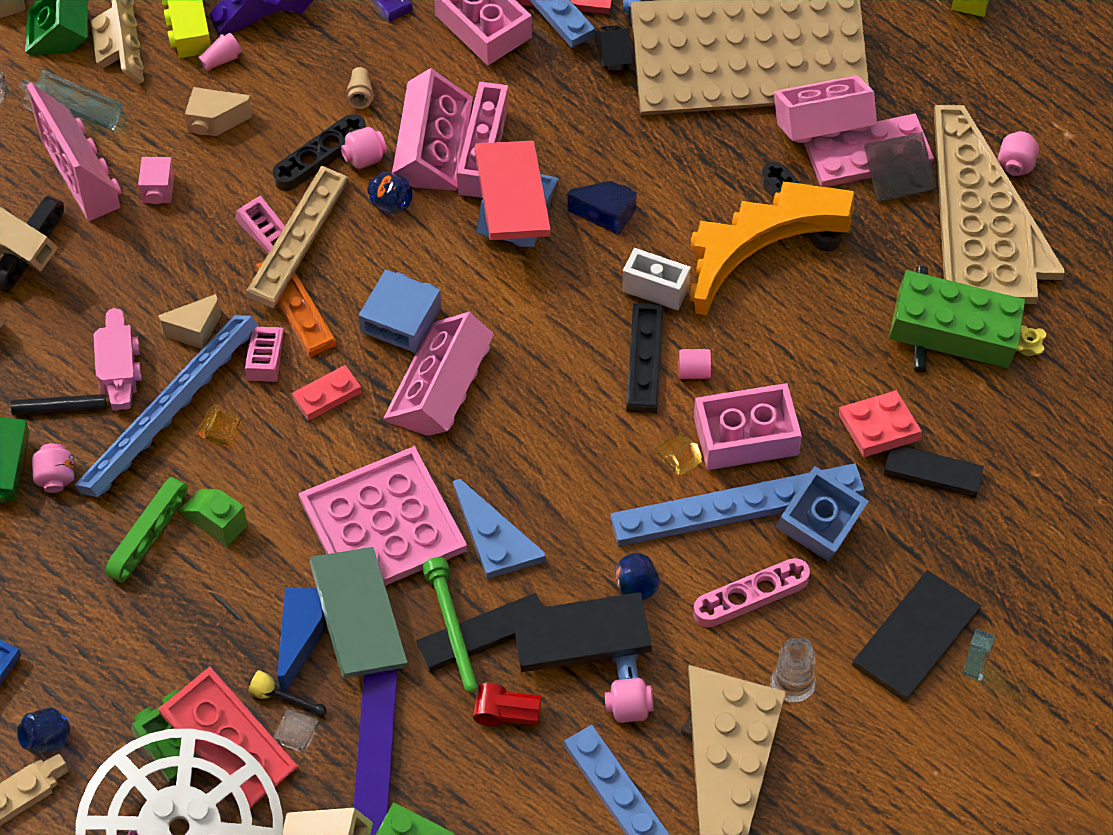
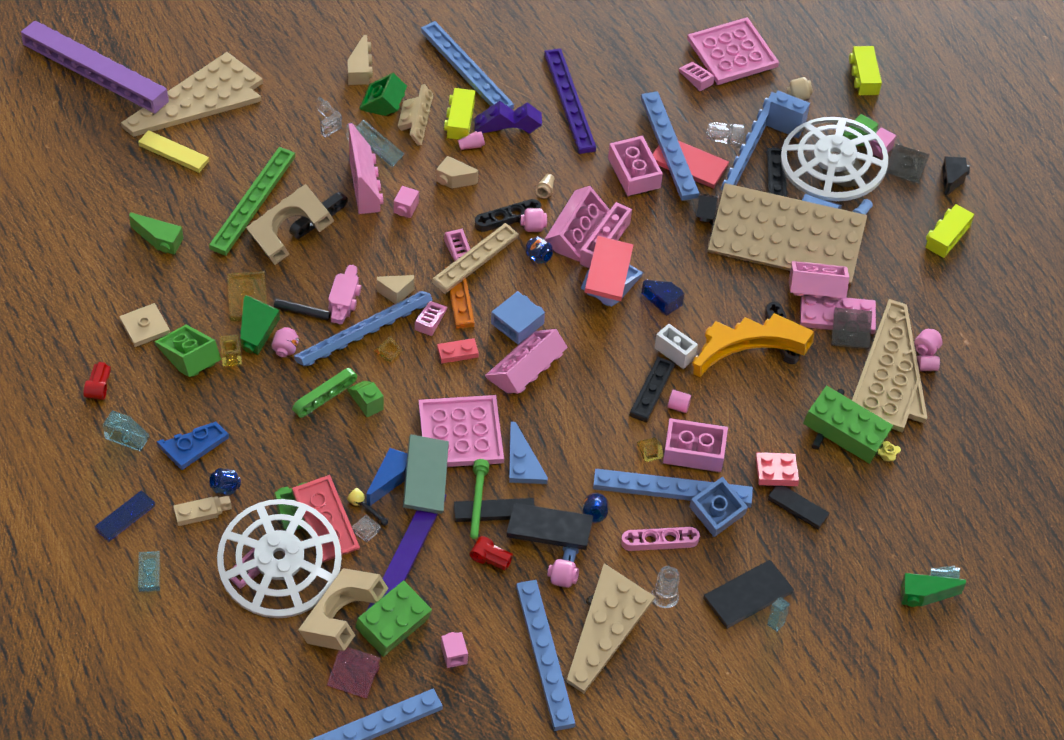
camera: 15 degrees right, 5 degrees down
(1031, 184) = (928, 362): none -> bright pink brick

